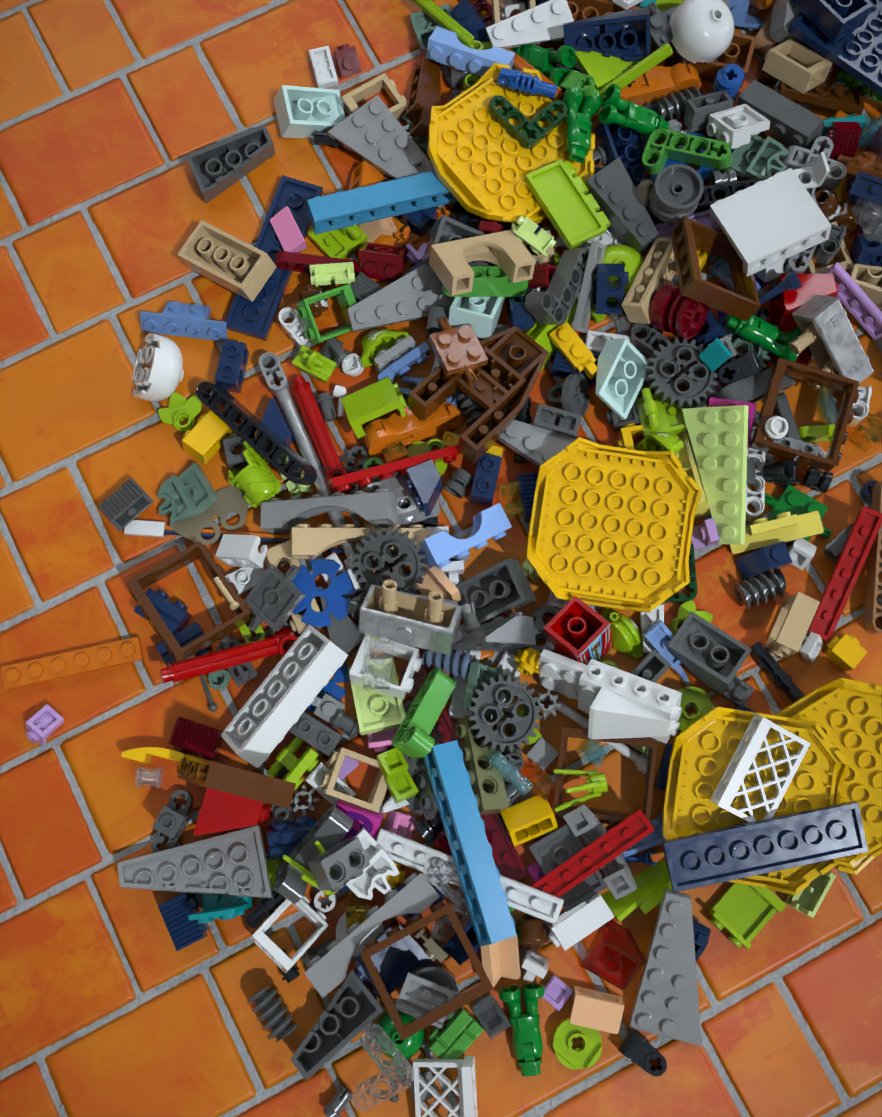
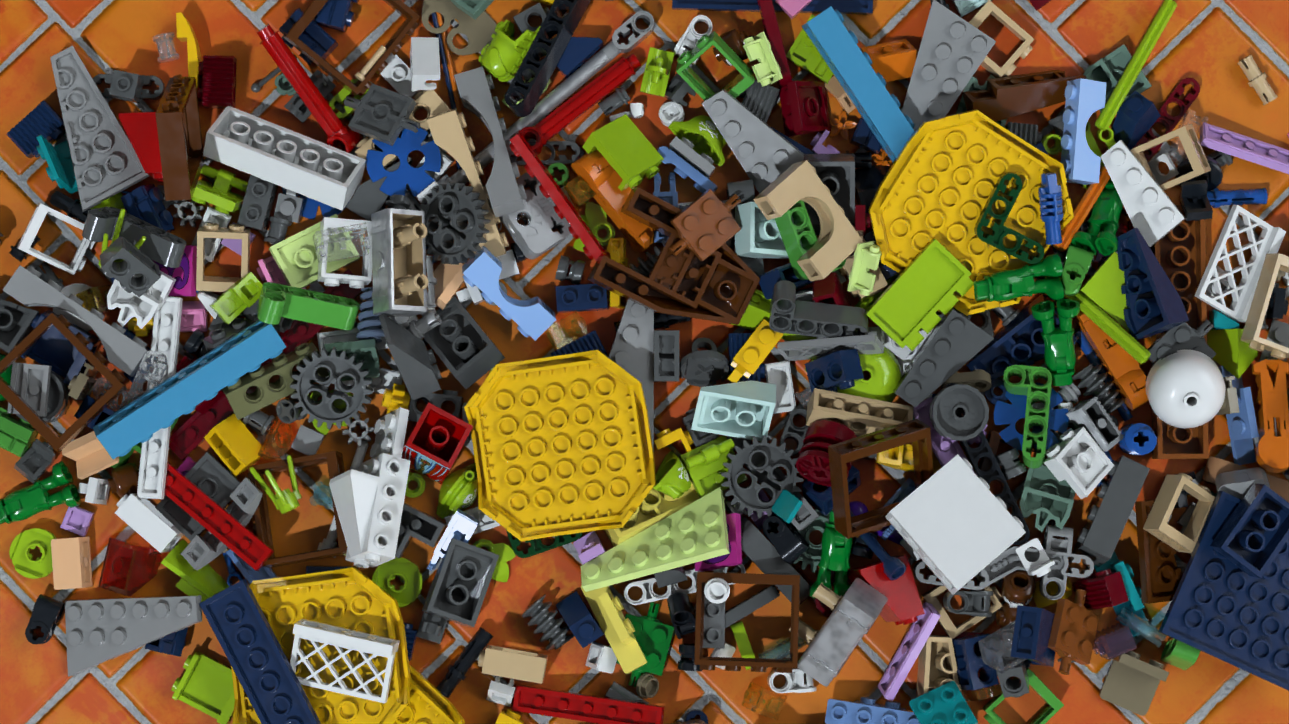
camera: 75 degrees right, 10 degrees up
(318, 904) = (93, 258): white bush -> none
(426, 484) = (547, 236): slope -> none
(511, 773) = (273, 412): clear light blue pin -> none
(833, 522) = (647, 686): none -> dark tan plate

